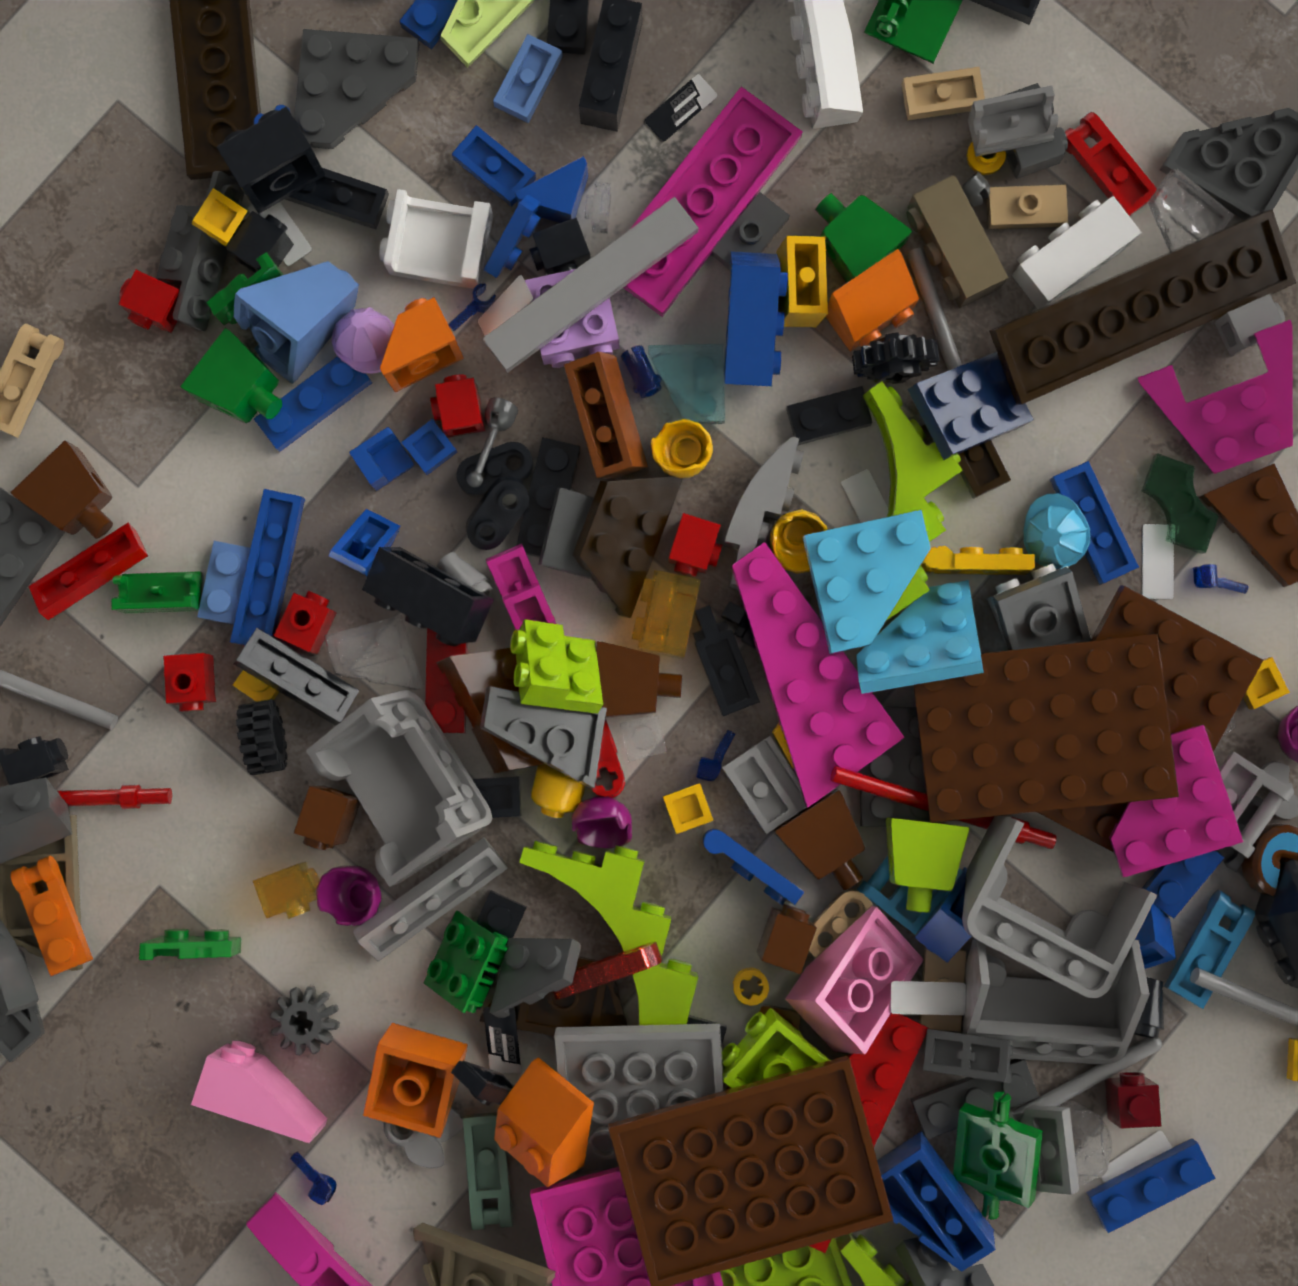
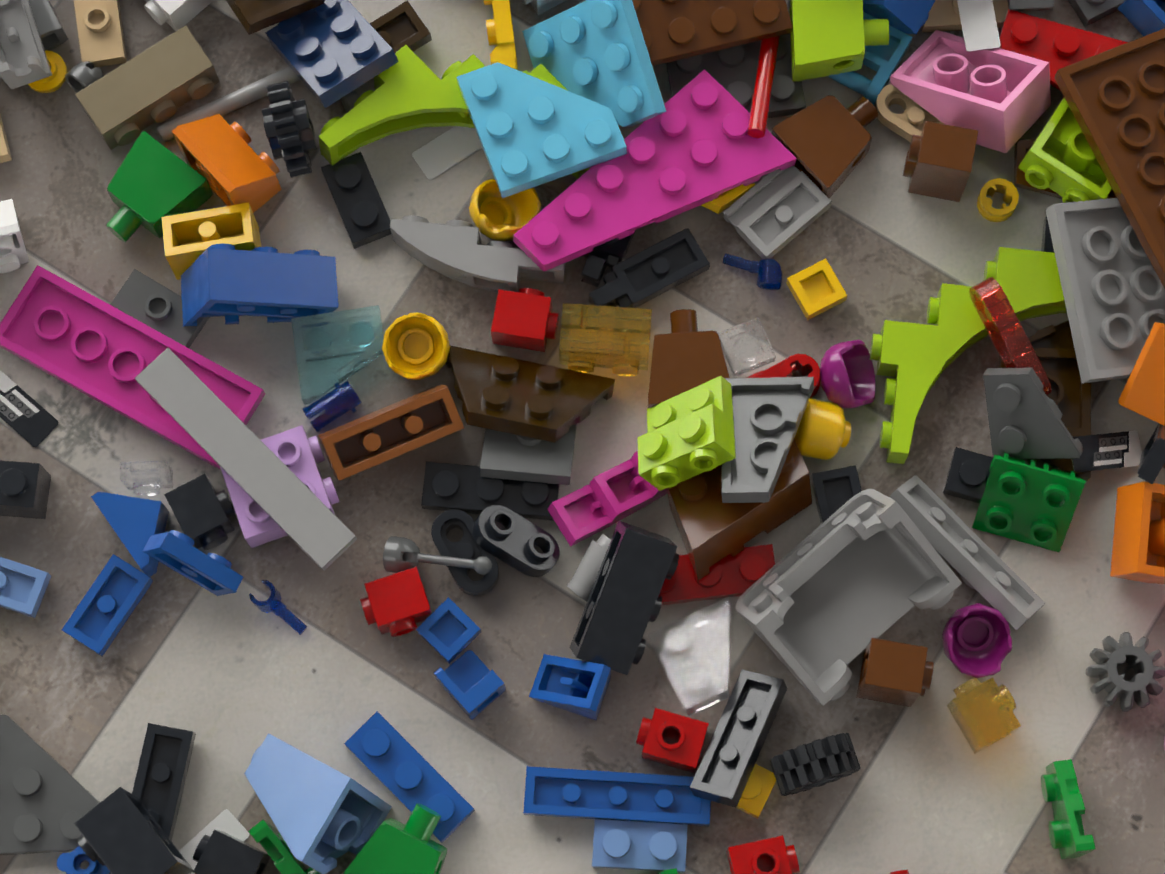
camera: 95 degrees left, 10 degrees down
(362, 339) = (333, 722): lavender piece -> none
(419, 345) = (327, 646): orange slope -> none
(436, 240) = (203, 656): white panel -> none
(507, 305) = (279, 563): white sticker -> none
(749, 866) = (868, 213): blue plate -> none

